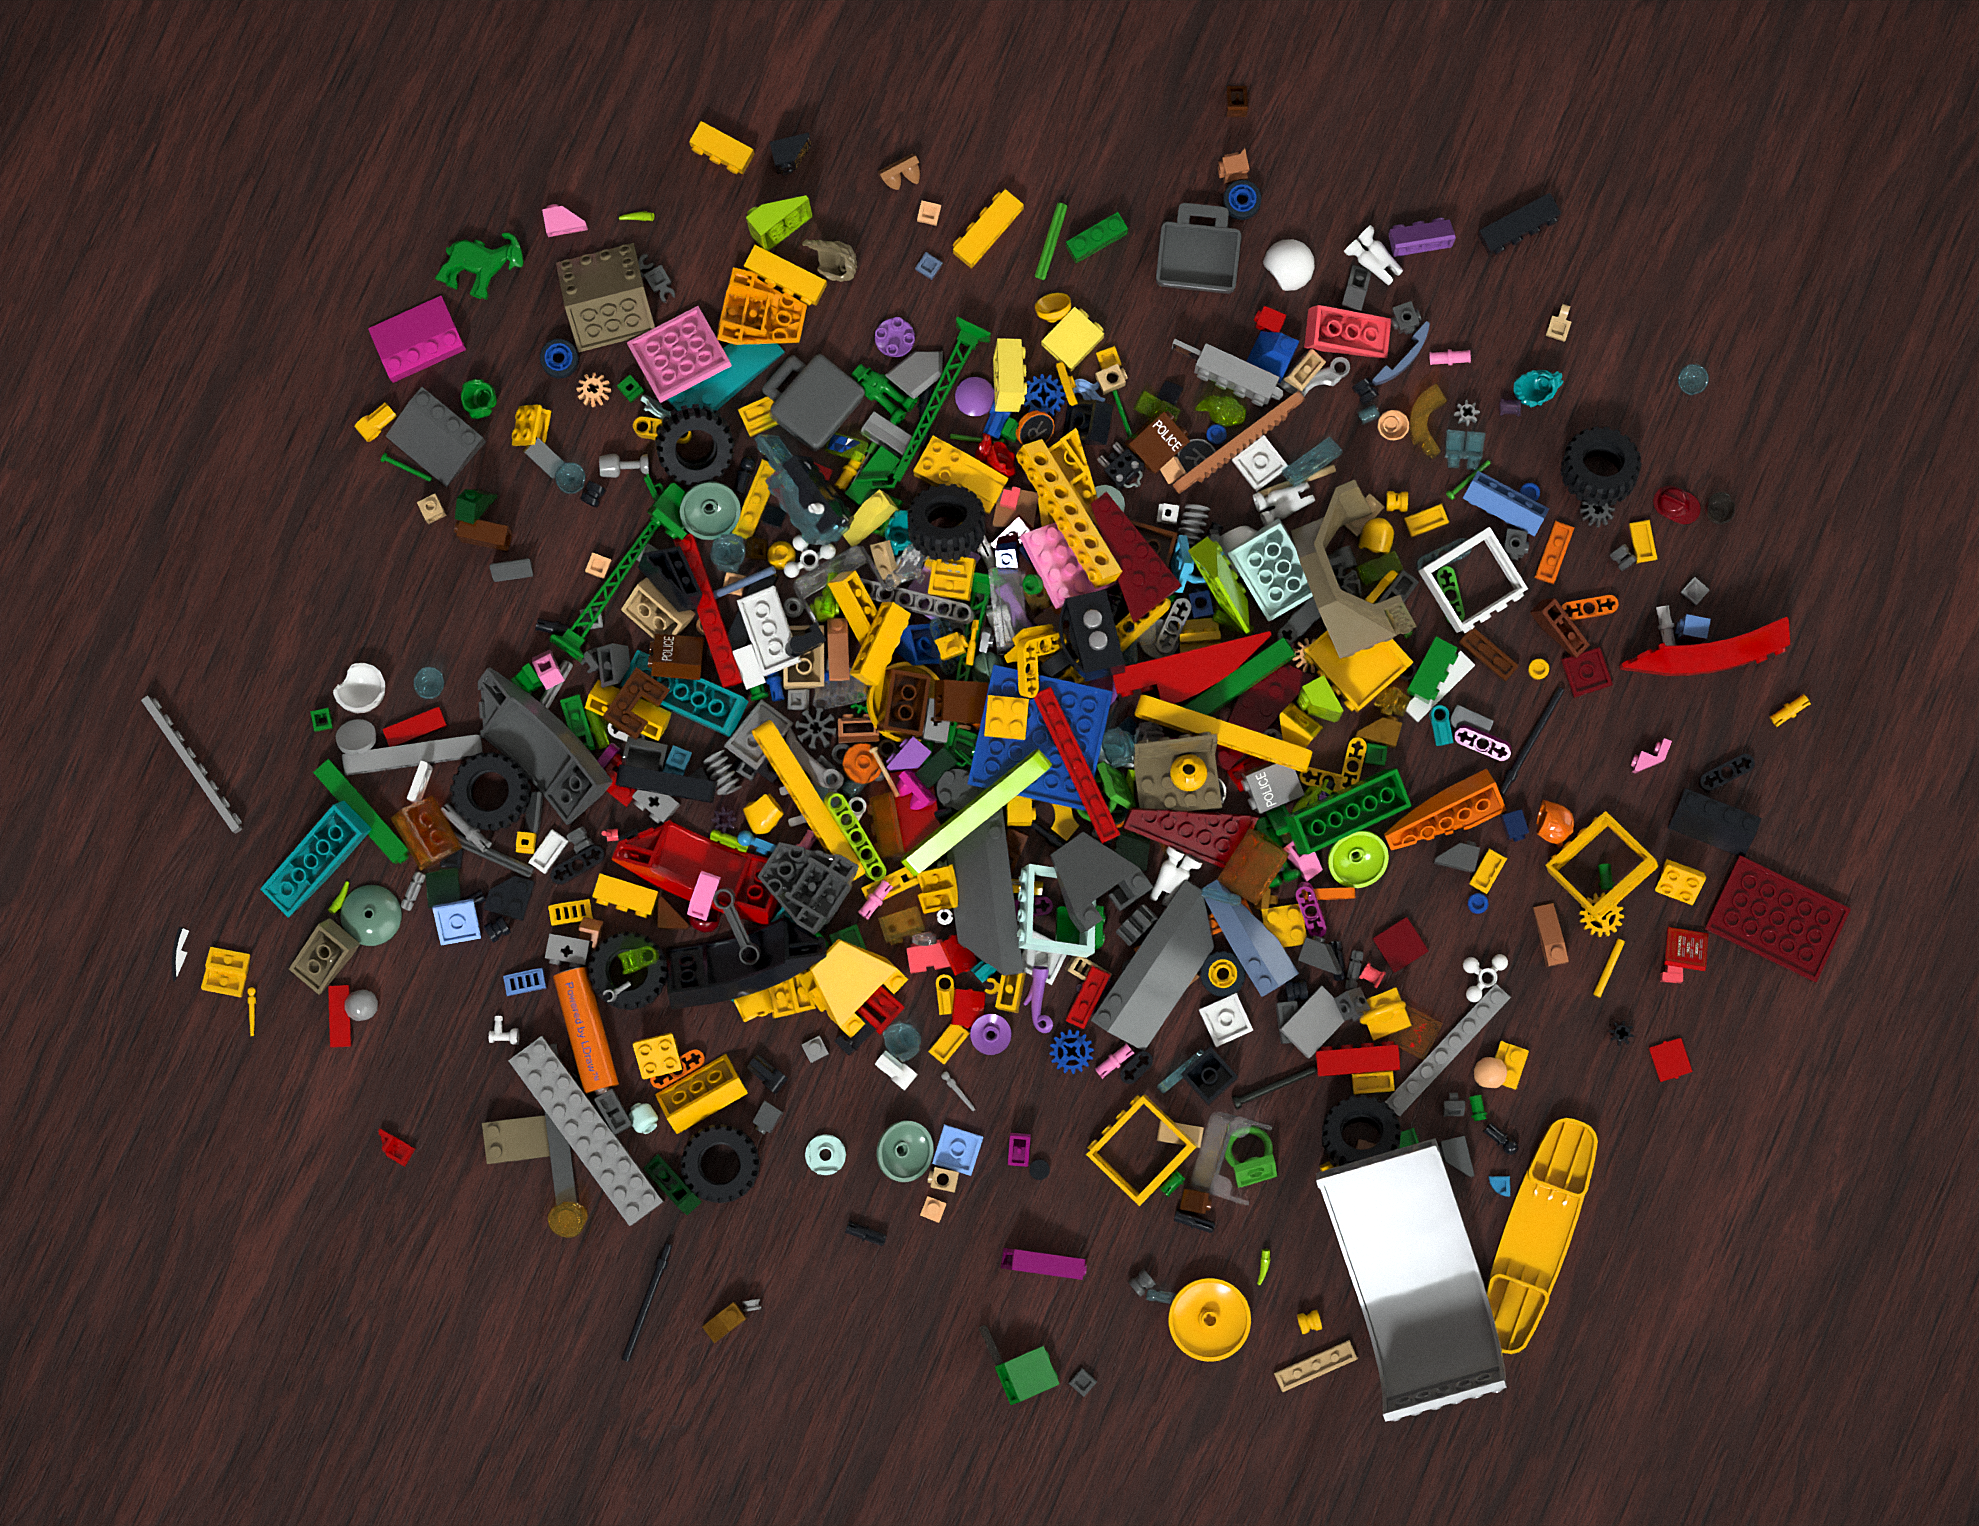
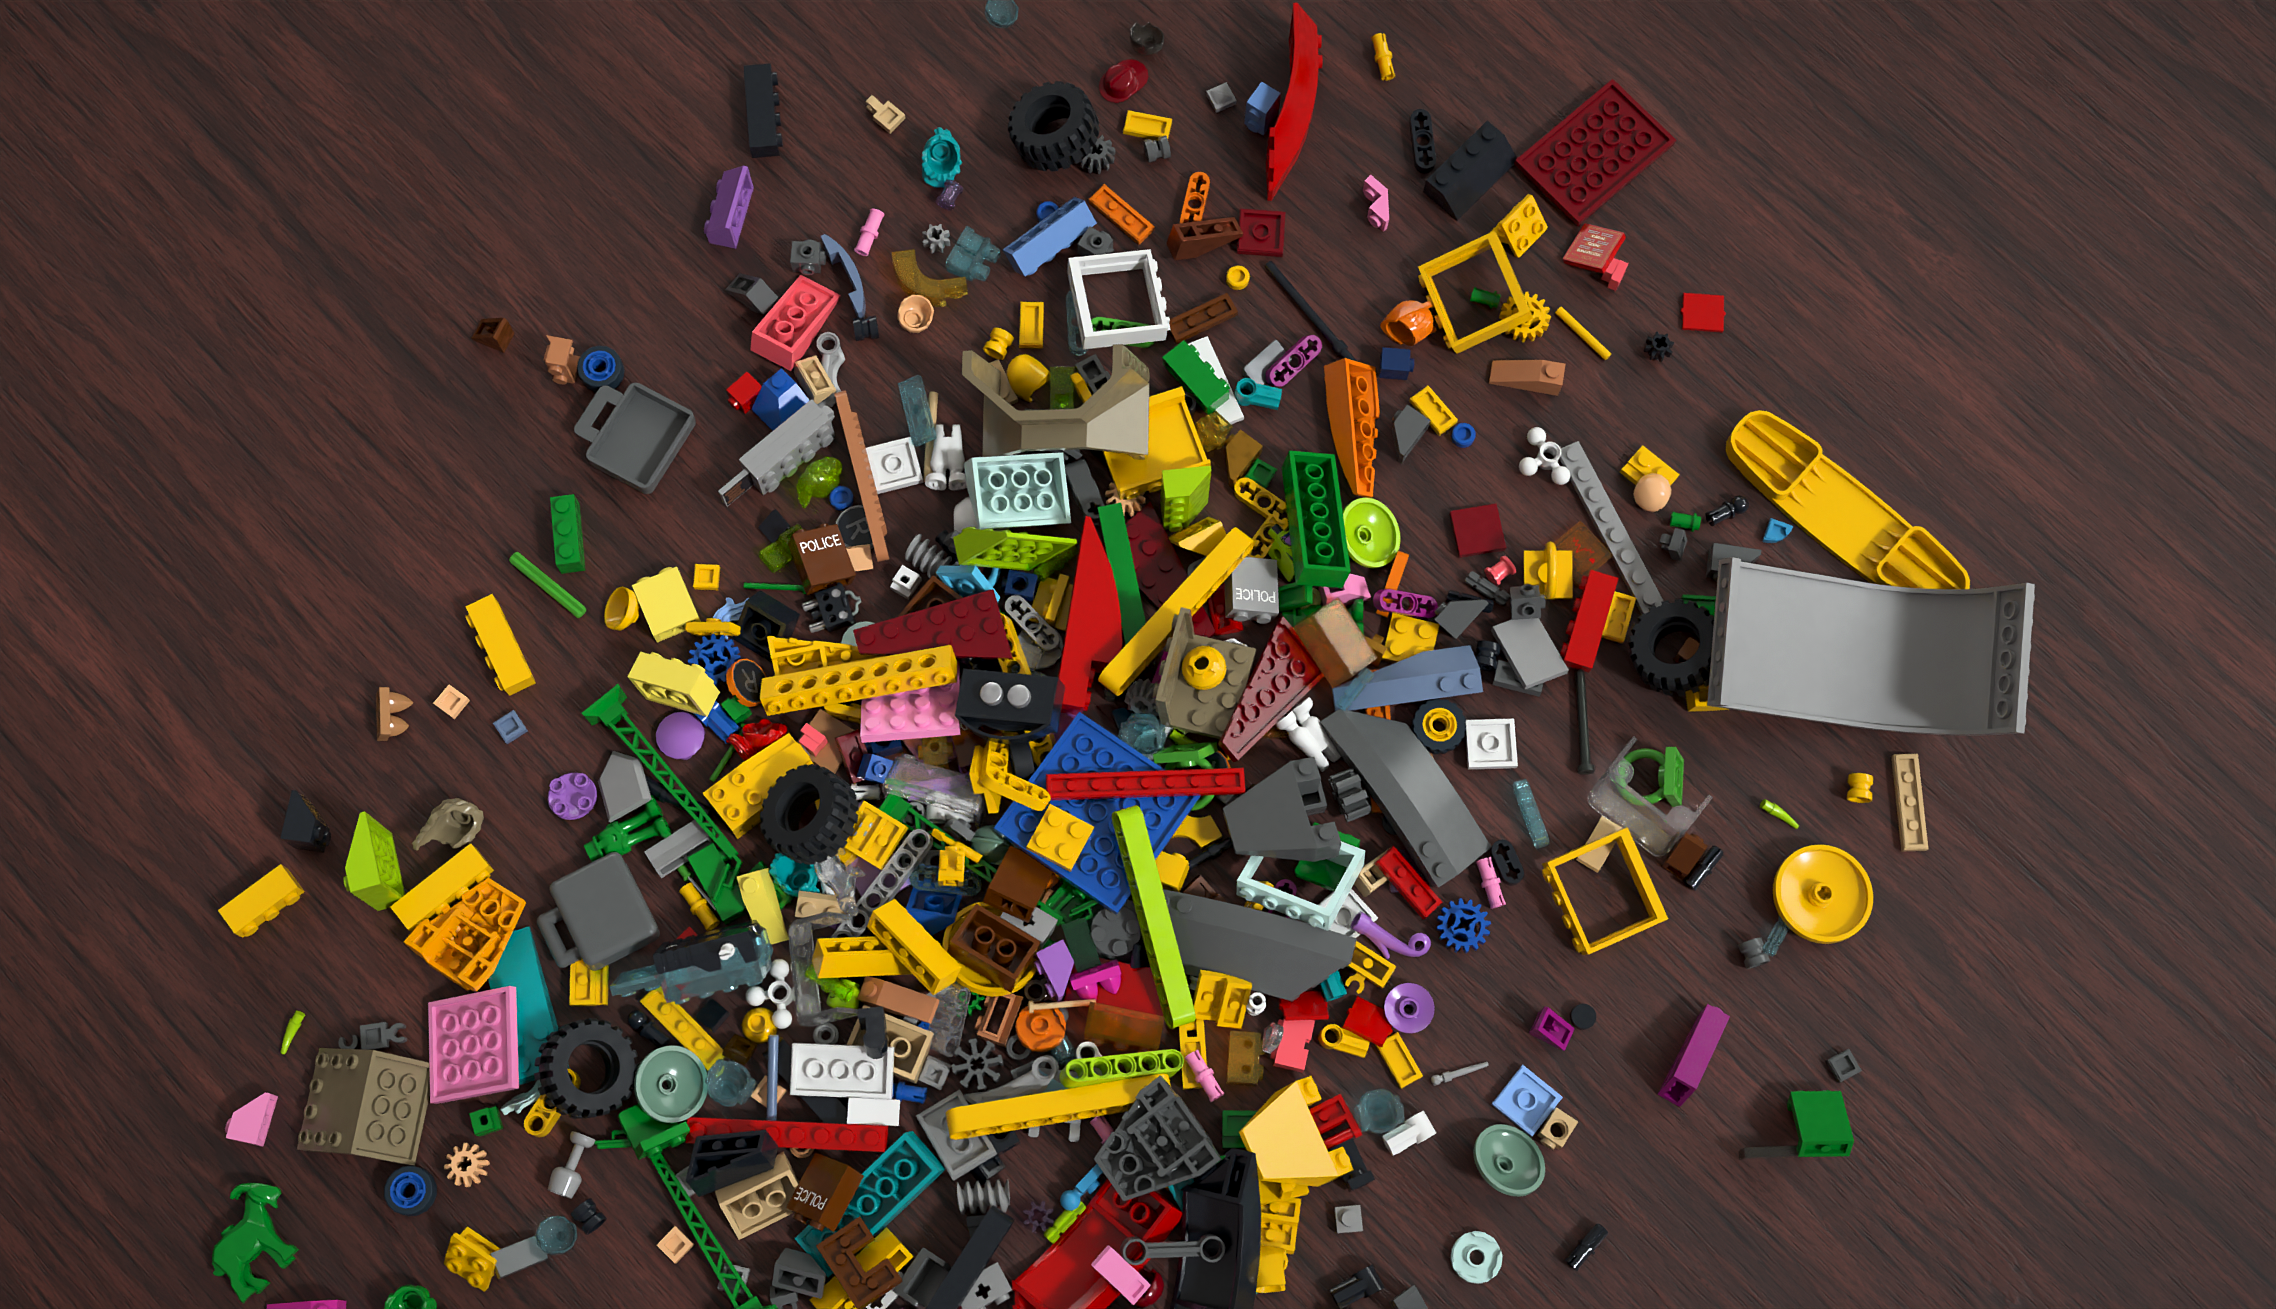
camera: 75 degrees left, 10 degrees down
(677, 761) = (946, 1244): medium azure slope -> none
(758, 692) = (907, 1116): green bush -> none
(763, 814) = (1051, 1168): yellow piece -> none
(846, 447) = (670, 898): slope -> none
(933, 1209) = (1585, 1156): light nougat plate -> none
(1032, 584) = (921, 749): green tile -> none
(1106, 386) = (732, 590): tan brick -> none
(1133, 848) = (1259, 765): clear green piece -> none
(1172, 1183) = (1654, 874): green pin -> none
(1209, 1076) = (1551, 783): black slope -> none
(1290, 263) = (693, 349): white cylinder -> none
(1368, 414) = (892, 335): clear light blue hinge -> none
(1376, 257) = (727, 261): white piece -> none
(1451, 494) = (1014, 288): bright green piece -> none
(1666, 625) = (1246, 137): white pin -> none

